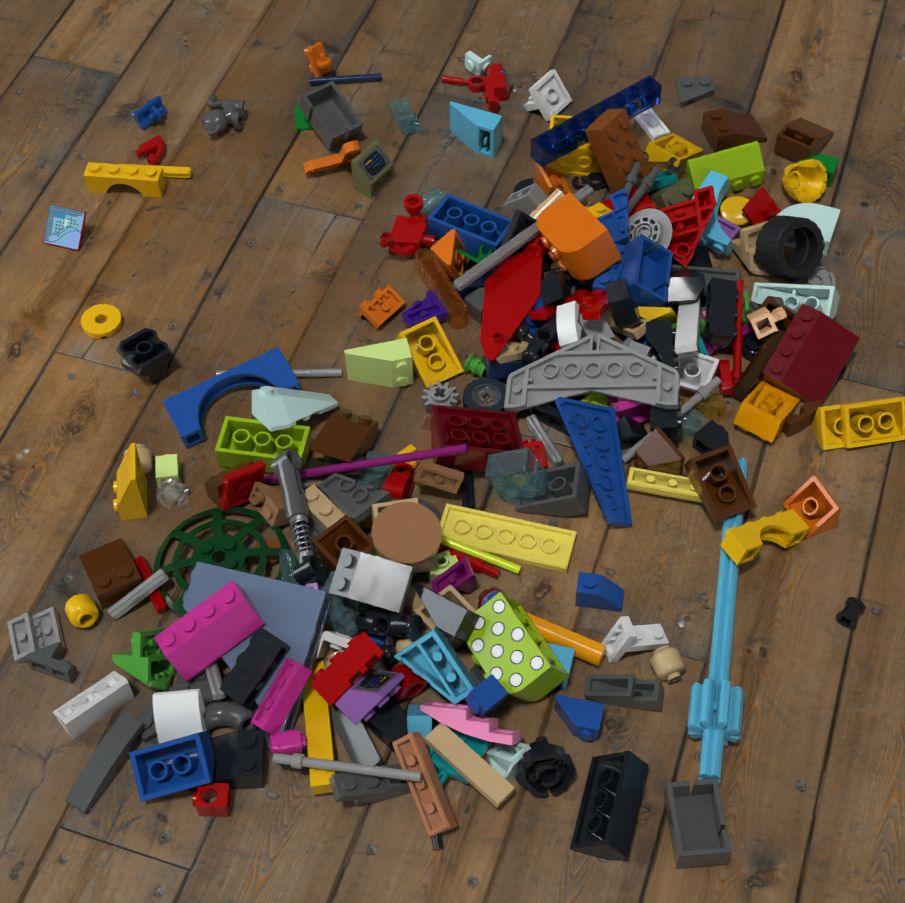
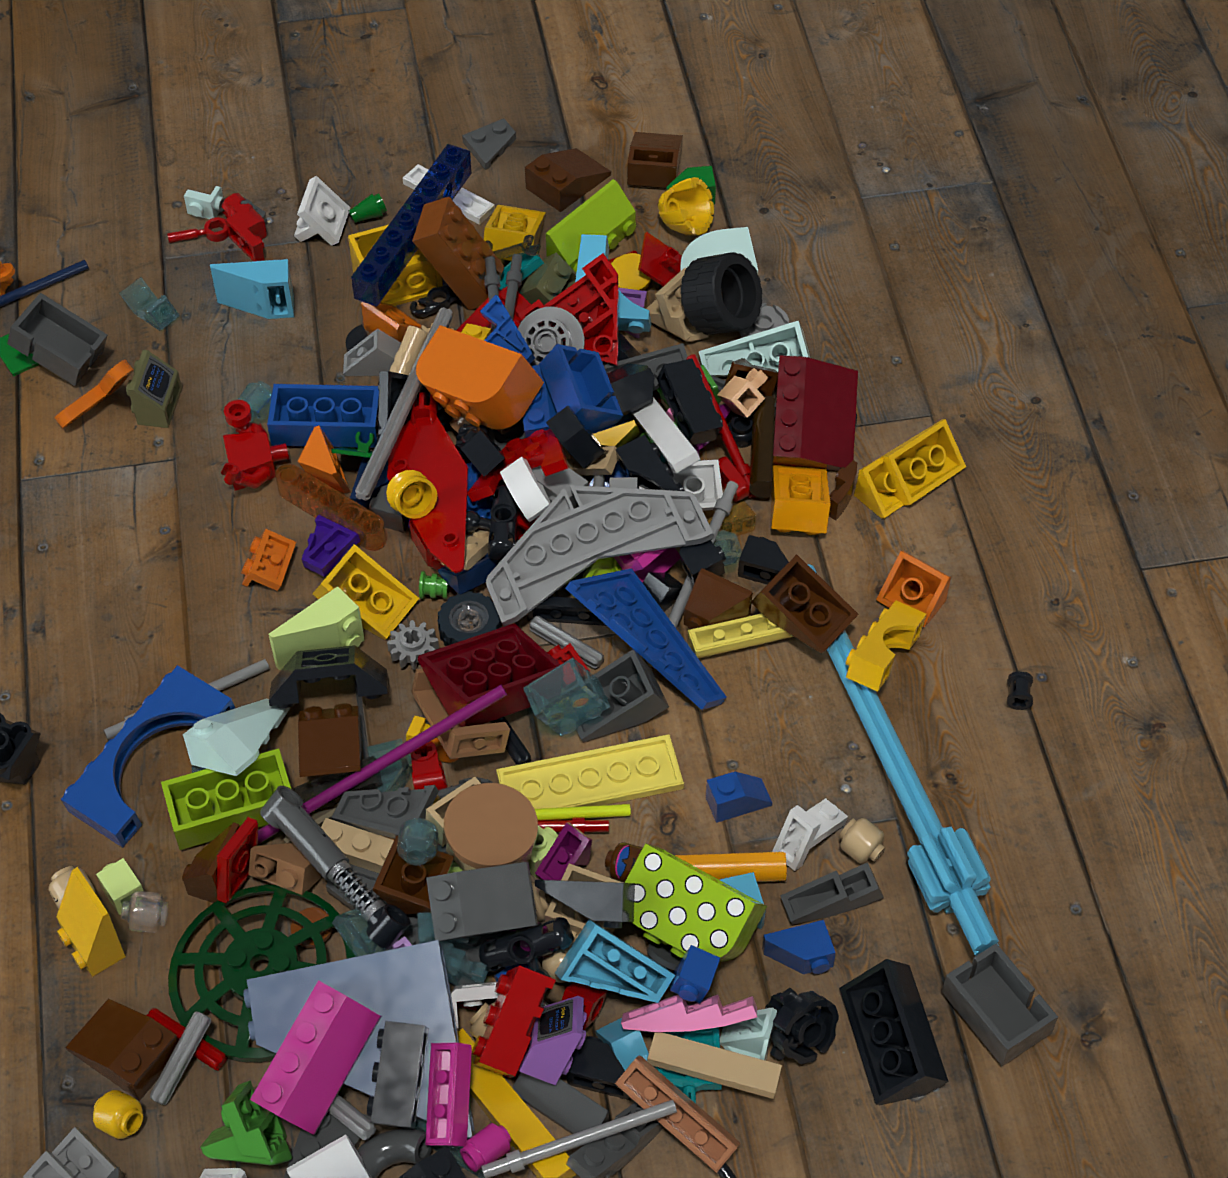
camera: 30 degrees left, 0 degrees up
(355, 523) = (417, 841): none -> clear light blue head
(396, 402) = (324, 663): none -> black slope
(488, 297) = (411, 494): none -> yellow piece
(581, 104) = (367, 209): none -> green cone

